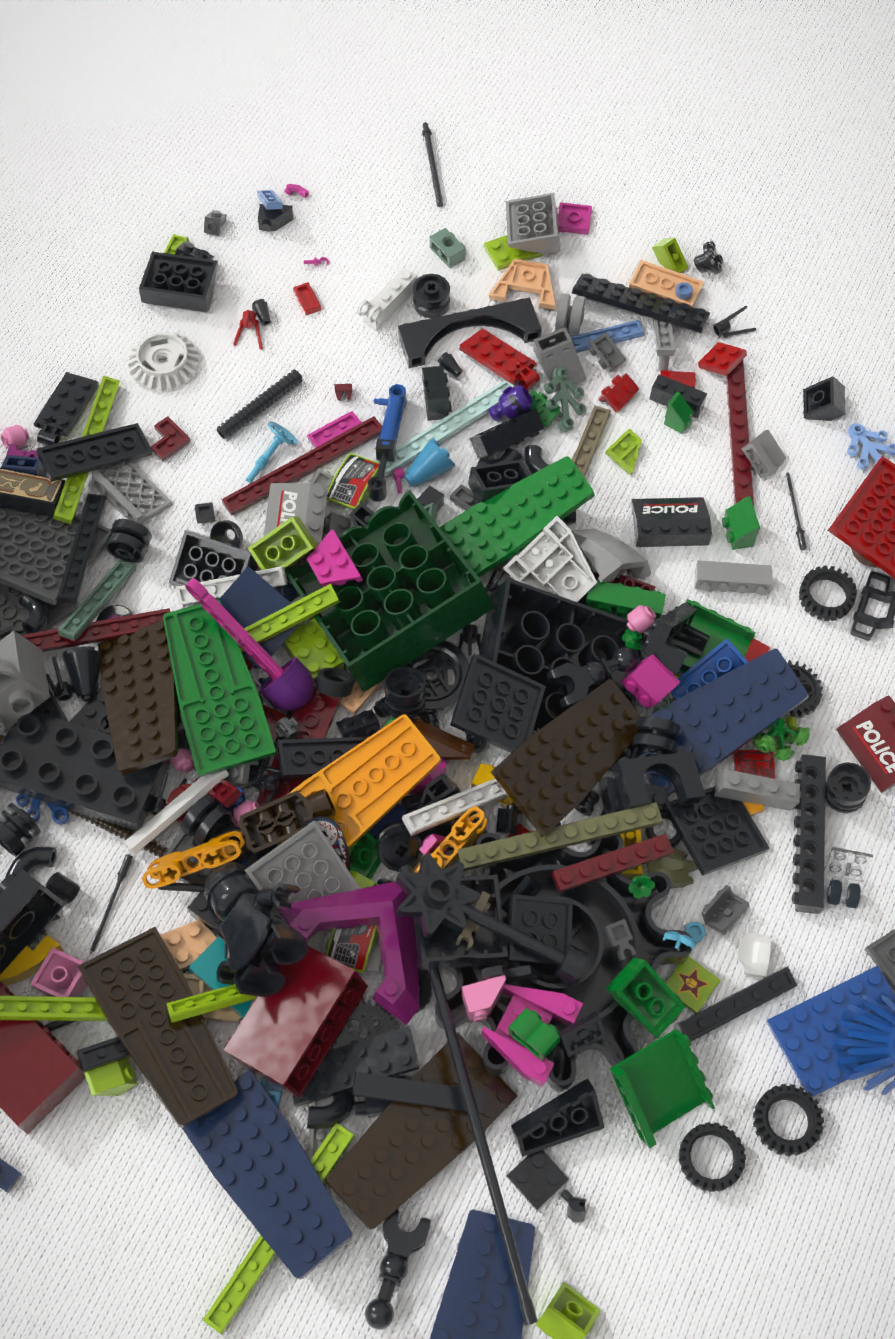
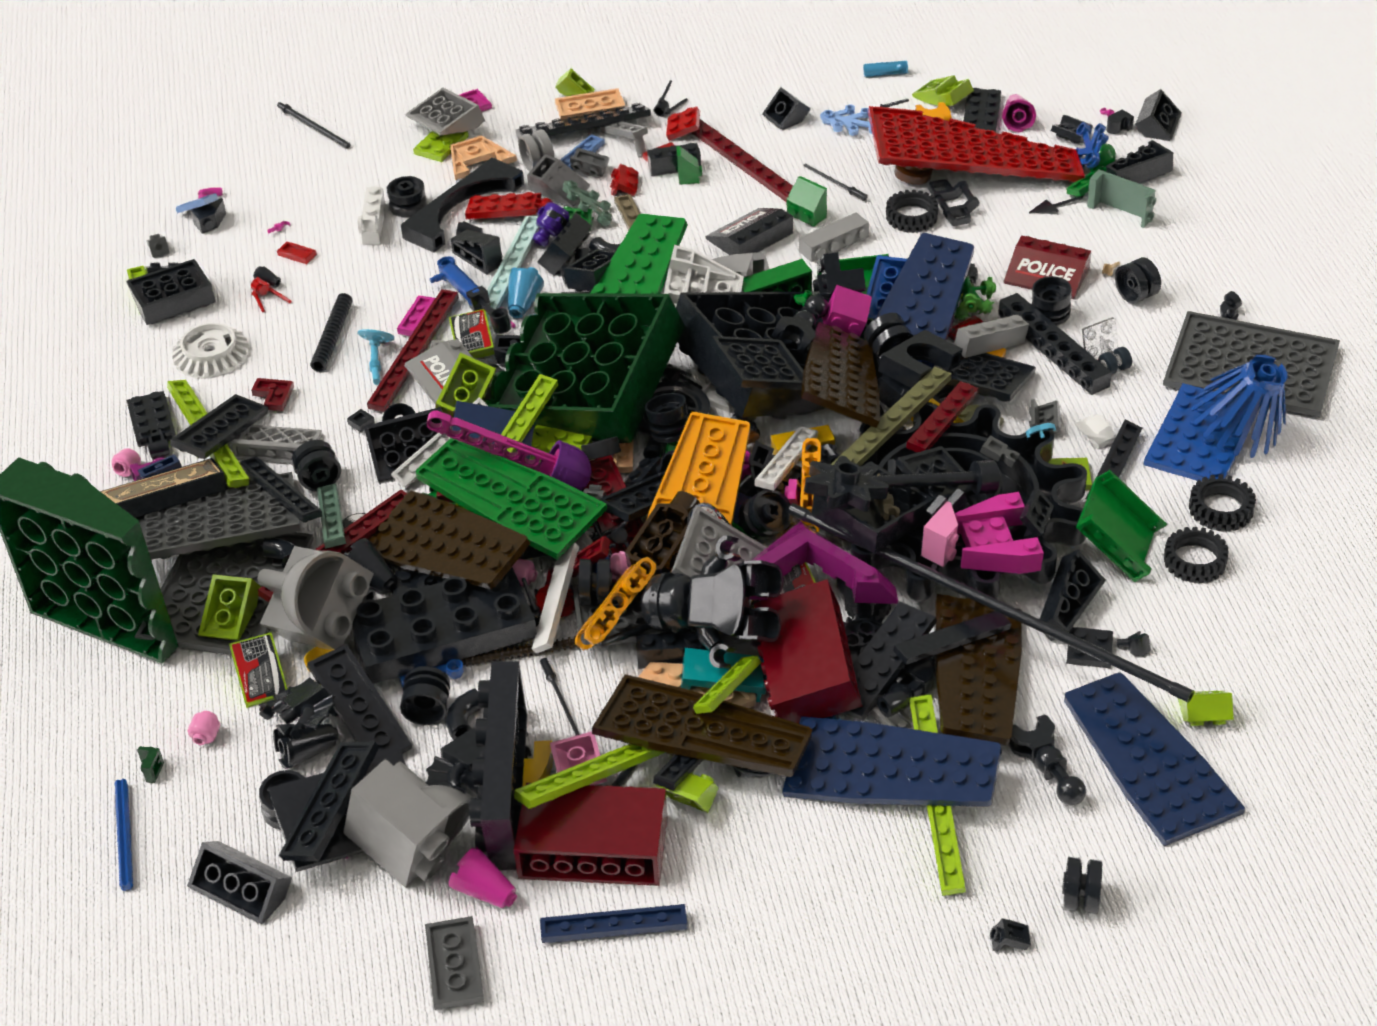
camera: 35 degrees left, 20 degrees down
(332, 562) = (521, 370): dark pink wing -> none
(340, 388) = (395, 286): dark red tile -> none
(447, 247) = (385, 164): sand green brick -> none
(534, 1034) = (1005, 525): green brick -> none
(625, 450) = (669, 206): lime wing -> none
(641, 619) = (801, 279): bright pink head -> none
(641, 886) = (979, 415): green plant -> none
(645, 996) = (1053, 470): green slope -> none
(683, 290) = (609, 99): medium blue tile -> none
(709, 259) = (608, 73): black plate -> none
(764, 454) = (777, 159): light grey bracket -> none

